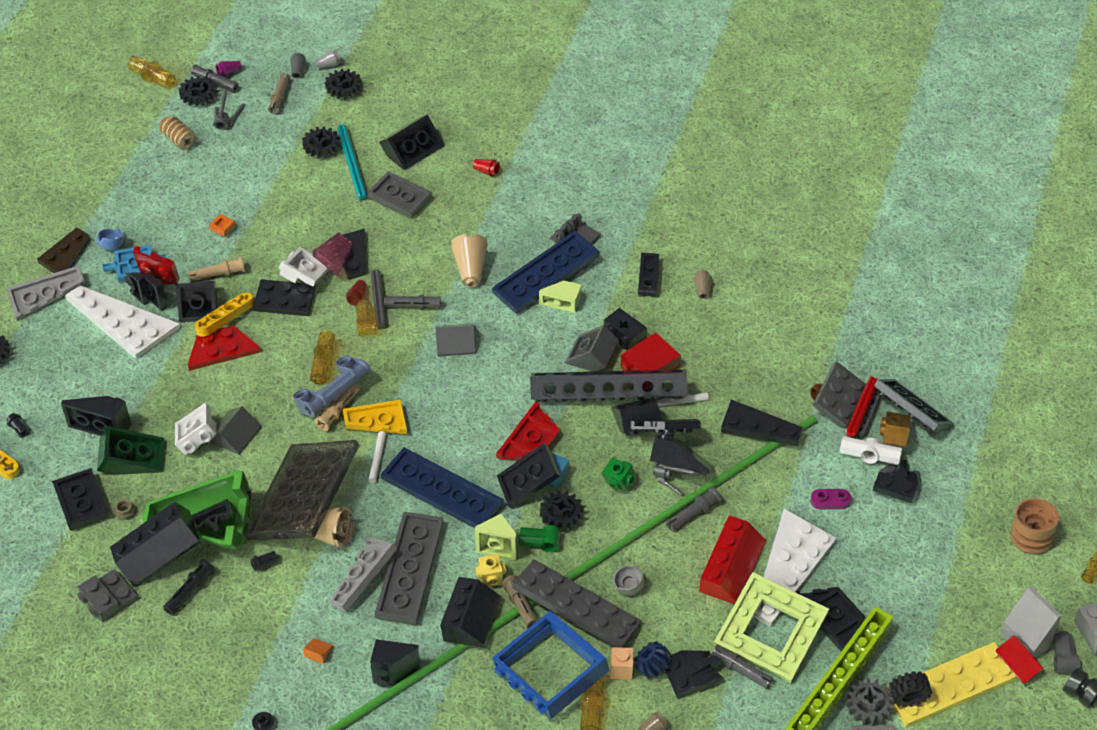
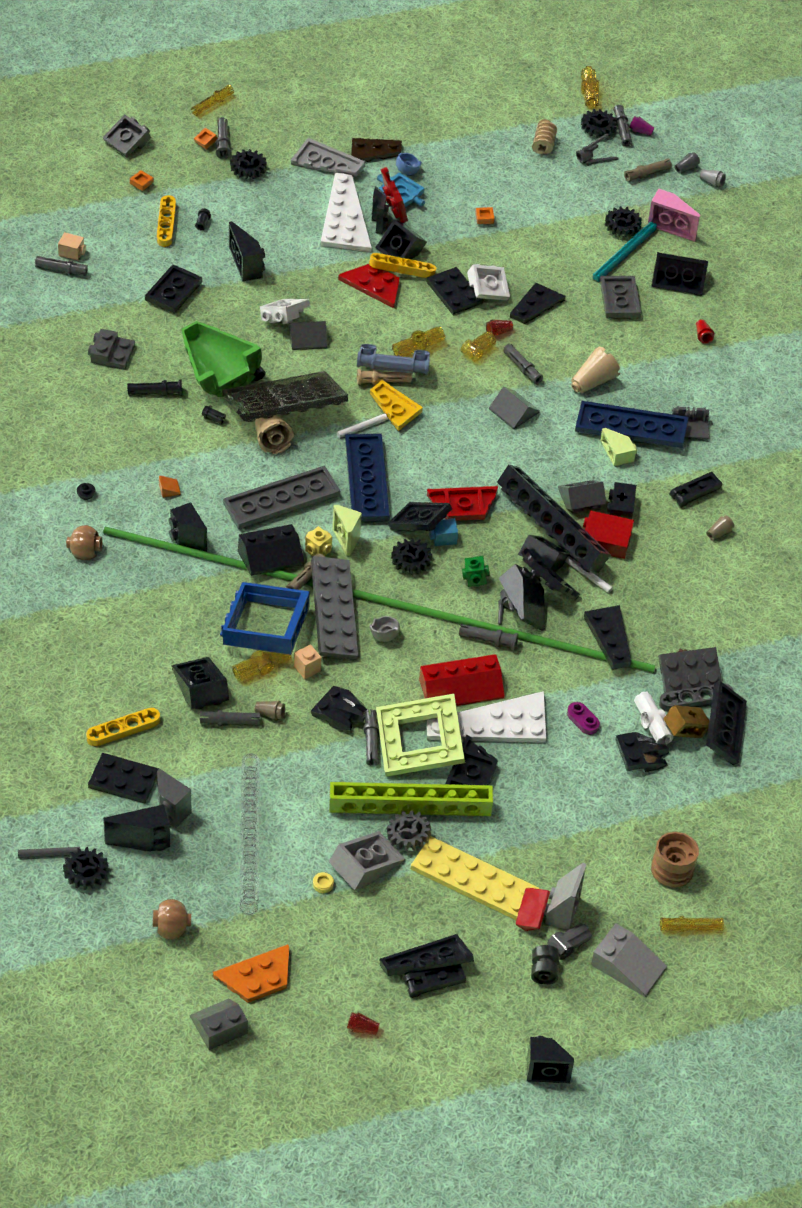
camera: 50 degrees right, 0 degrees up
(121, 505) = (187, 316): dark tan plate -> none
(129, 452) = (234, 289): dark green slope -> none
(155, 544) = (166, 343): black slope -> none
(213, 516) = (216, 361): black plate -> none
(225, 267) = (446, 241): tan pin -> none
(333, 252) = (519, 290): clear pink wing -> none
(343, 83) = (698, 198): black gear -> none
(352, 105) = (674, 215): none -> bright pink slope
(359, 576) = (250, 472): light grey wing -> none
(378, 299) = (511, 339): dark grey axle -> none
(545, 538) = (376, 558): green piece -> none
(652, 659) = (325, 677): dark blue gear -> none
(861, 408) = (686, 691): red axle -> none
(910, 689) = (433, 843): black tyre -> none

